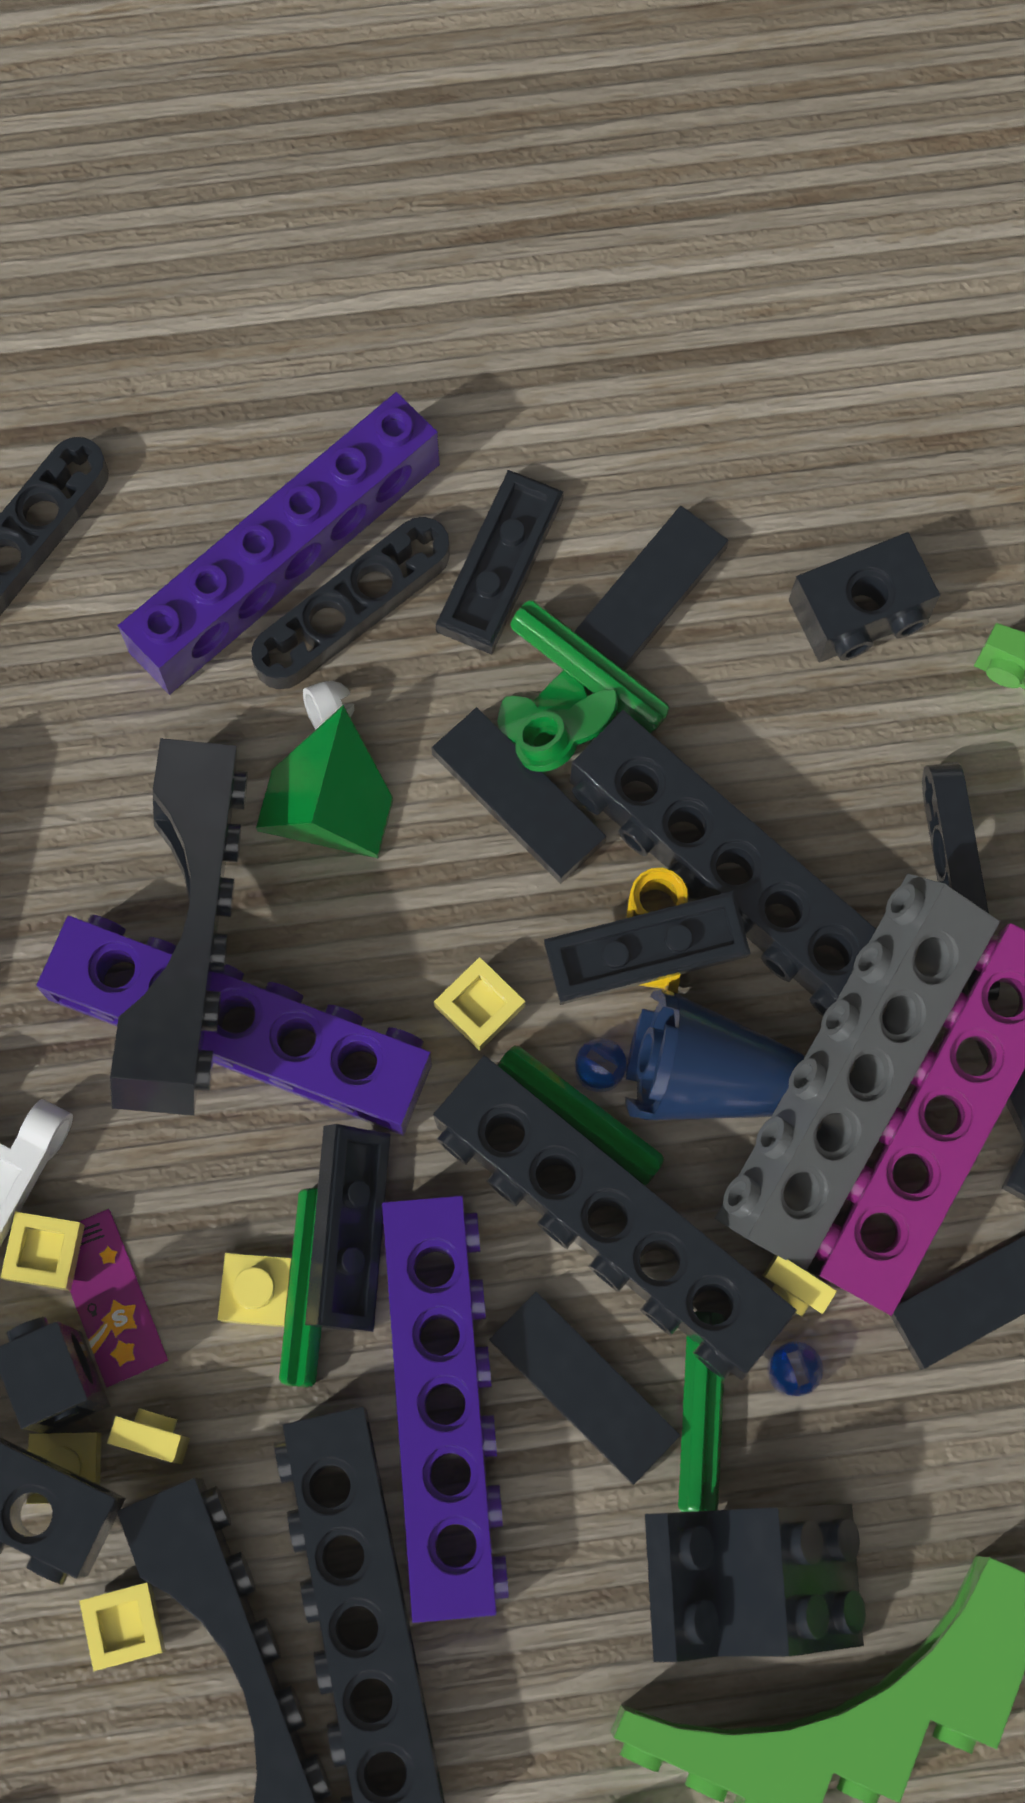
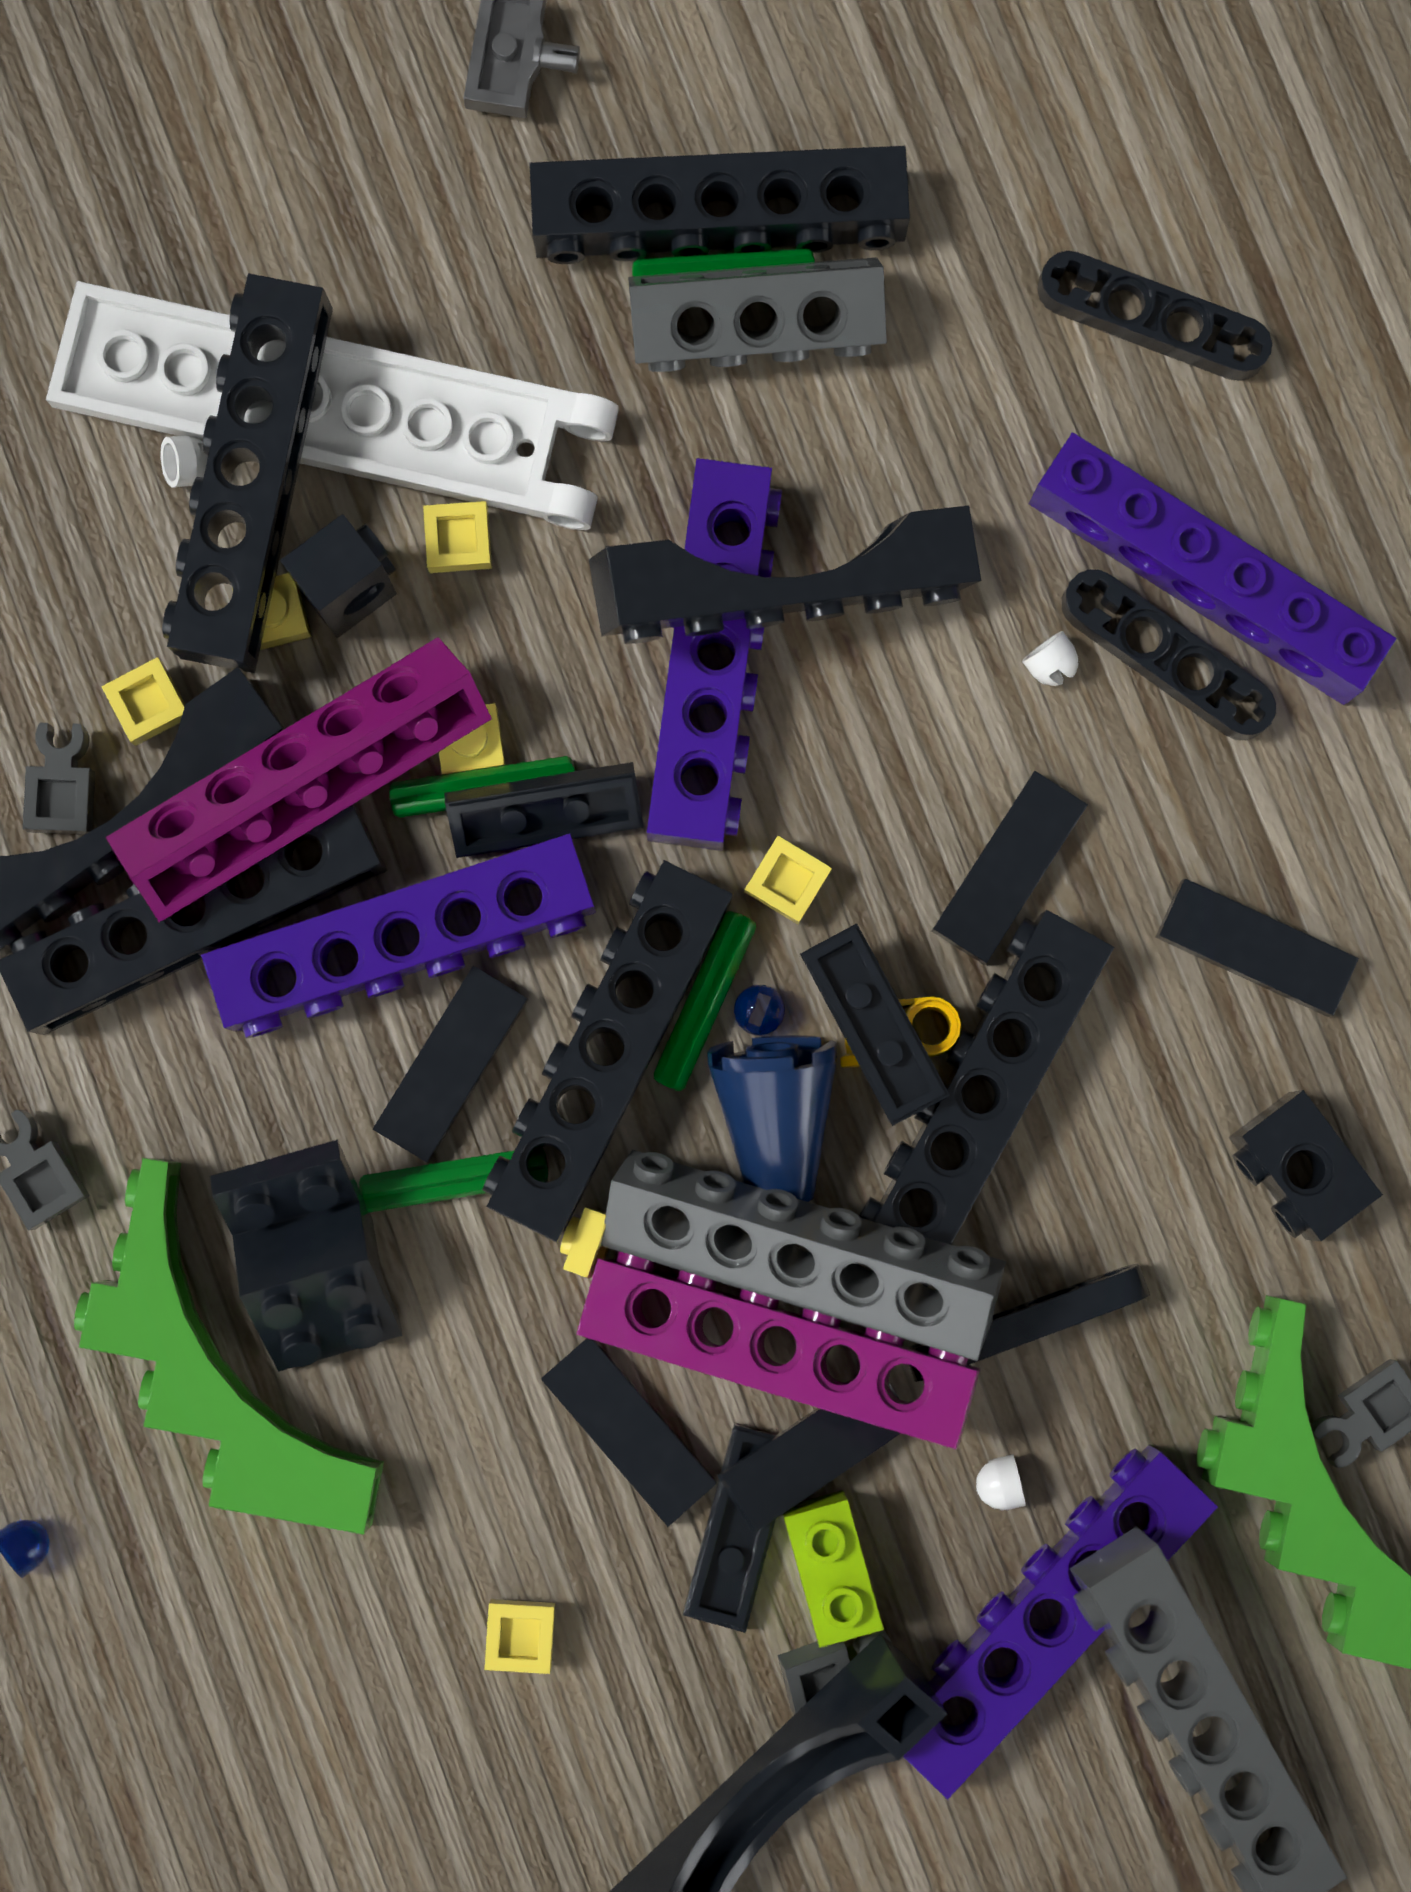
camera: 75 degrees right, 10 degrees up
(113, 1304) = (430, 610): magenta sticker -> none
(150, 1435) = (313, 678): light yellow plate -> none
(196, 1747) = (59, 794): none -> dark grey plate
(255, 1474) = (299, 778): none -> magenta brick
(329, 792) = (963, 683): green slope -> none
(499, 562) = (1252, 791): black tile -> none
(555, 722) = (1097, 889): green plate -> none
(588, 664) = (1158, 906): green axle -> none
(782, 1373) = (505, 1246): clear blue hinge -> none

